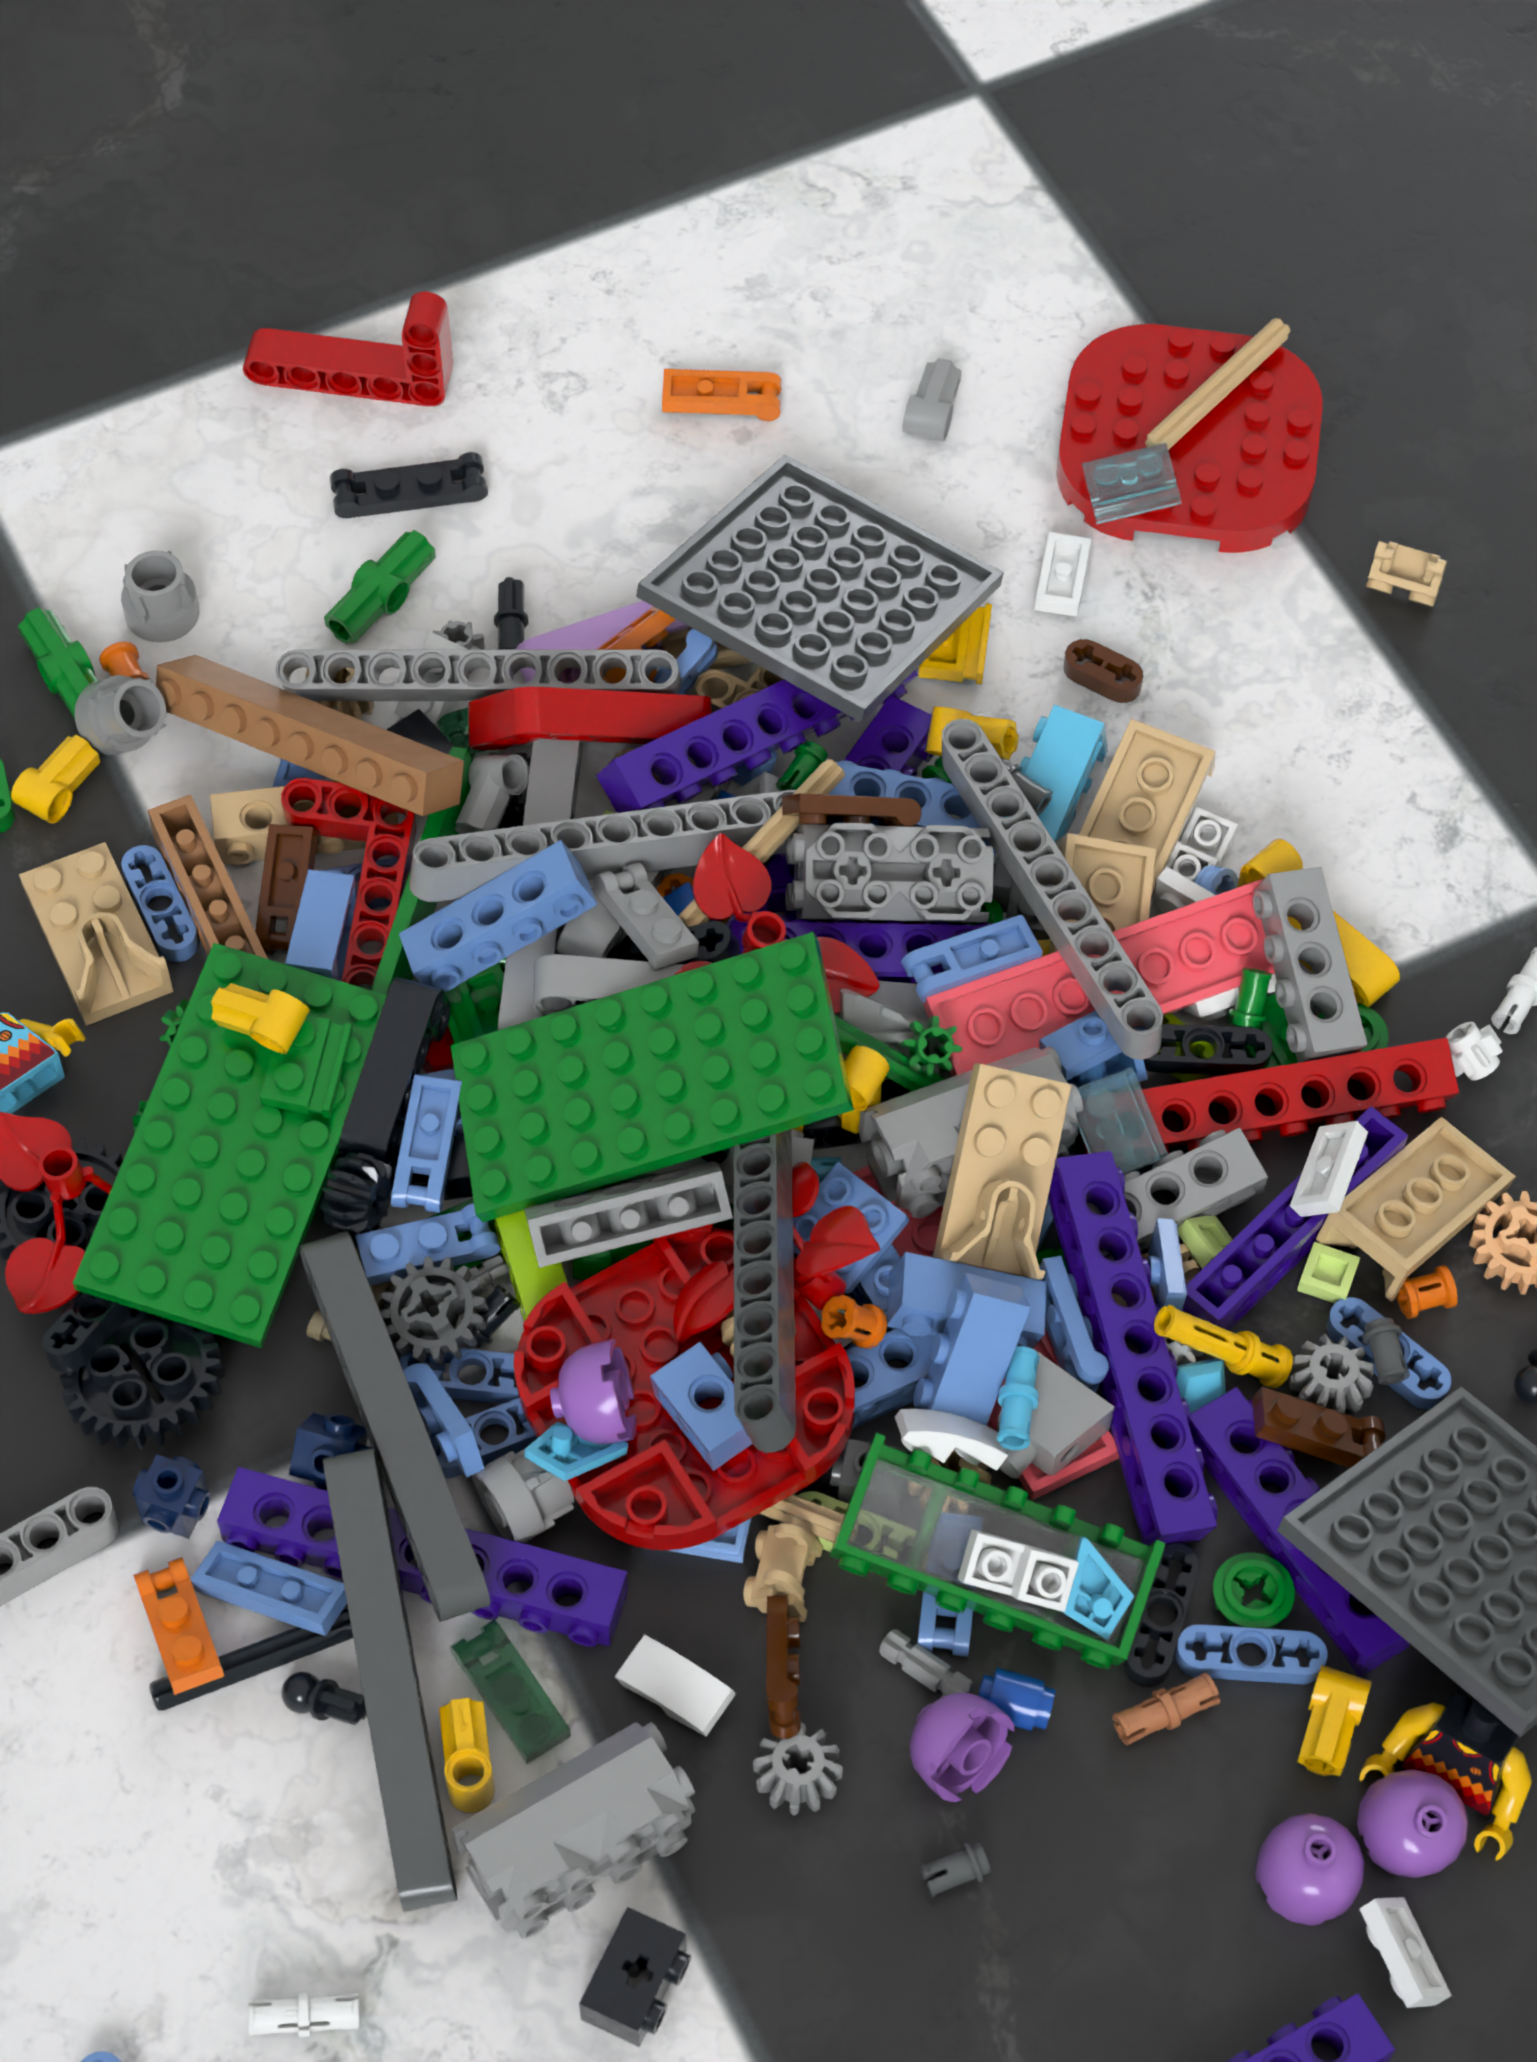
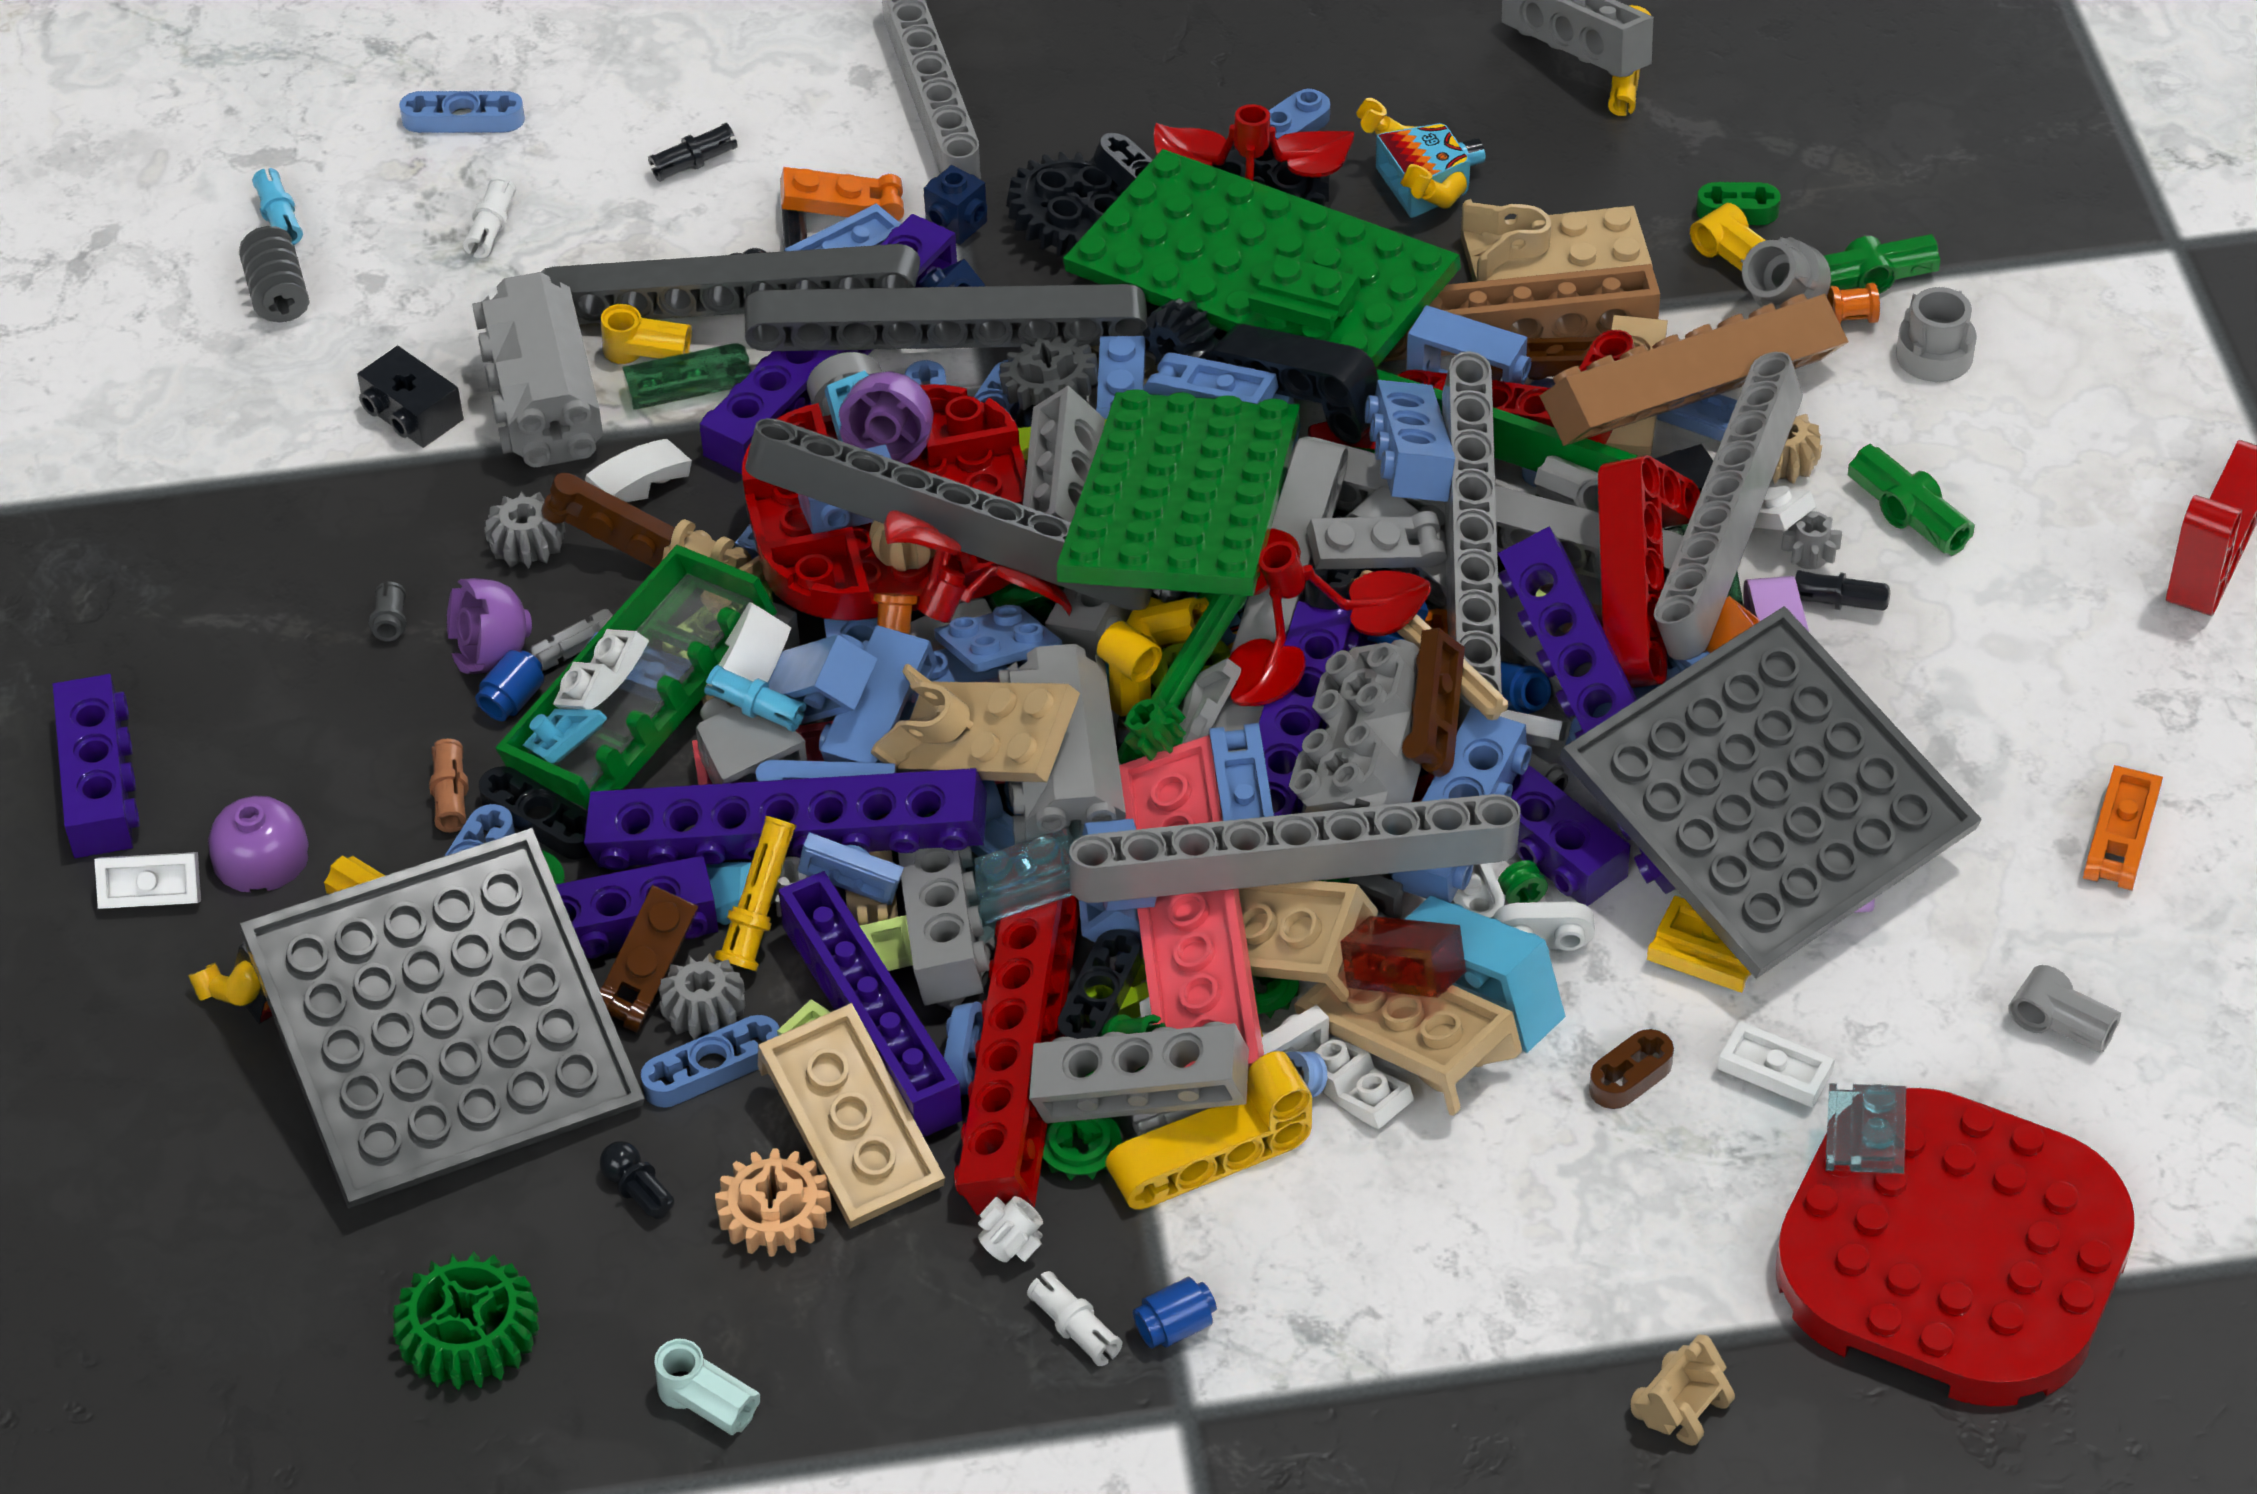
camera: 110 degrees right, 10 degrees down
(135, 1820) = (692, 152): none -> black pin
(268, 1019) = (1346, 246): yellow piece -> none
(408, 487) = (2049, 551): black plate -> none
(443, 1419) = (935, 354): medium blue plate -> none
(804, 764) = (1548, 748): green pin -> none
(1000, 732) = (1545, 880): yellow piece -> none
(1036, 794) = (1464, 894): dark grey pin -> none
(1106, 797) = (1403, 956): none -> clear red brick
(1219, 384) = (1998, 1256): tan axle -> none
(1278, 1147) = (963, 1032): none -> medium blue plate
(1329, 1169) = (875, 995): white plate -> none
(1386, 1350) = (700, 1033): dark grey pin -> none
(1413, 1823) = (237, 897): medium lavender cylinder -> none
(1427, 1292) = (756, 1105): orange bush -> none
(1492, 916) = (1175, 1313): none -> blue brick

